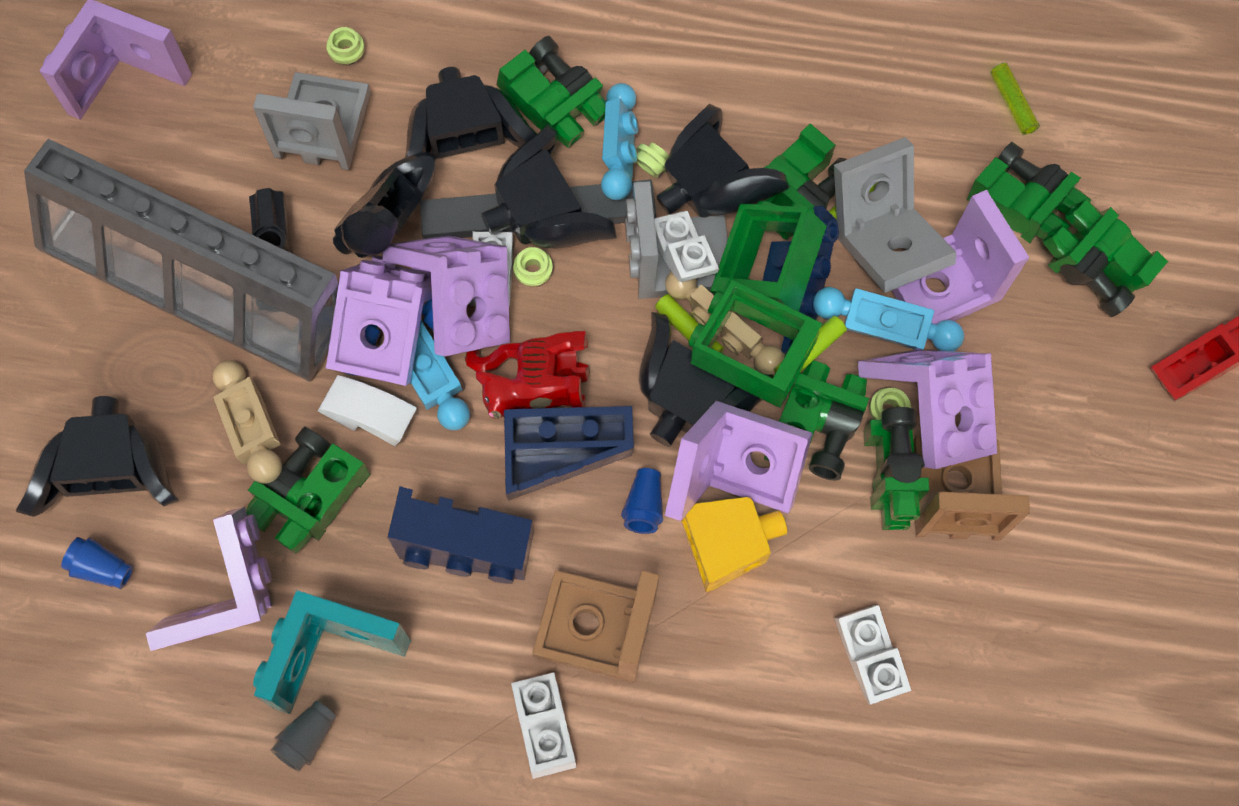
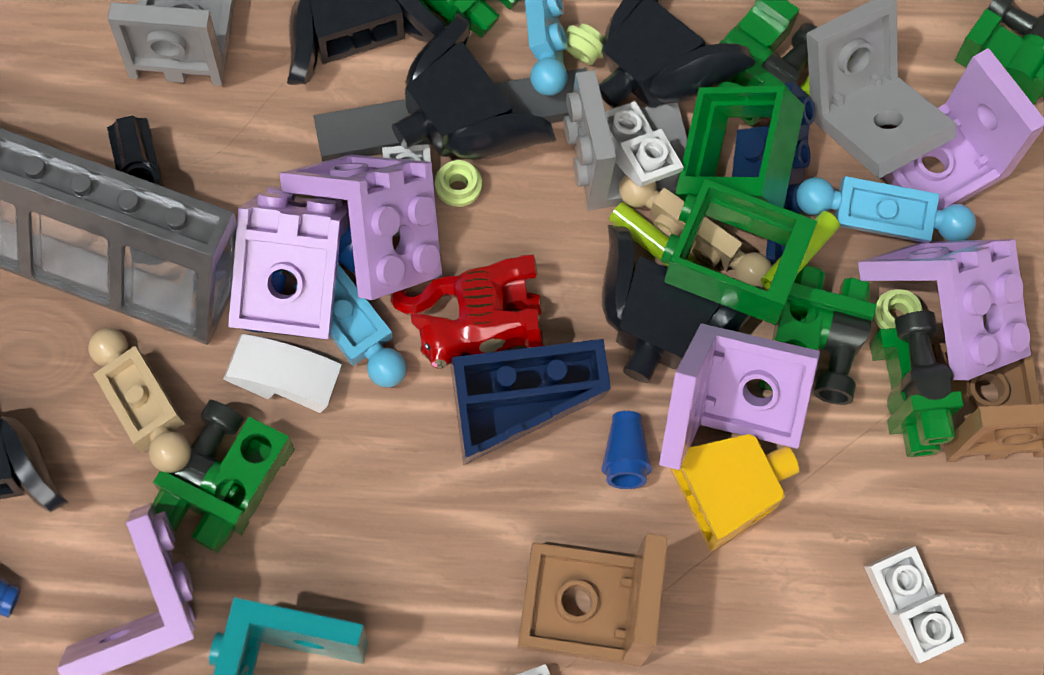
camera: 10 degrees left, 0 degrees up
(385, 207) = (275, 130): black torso -> none
(460, 538) = (416, 516): dark blue wedge -> none

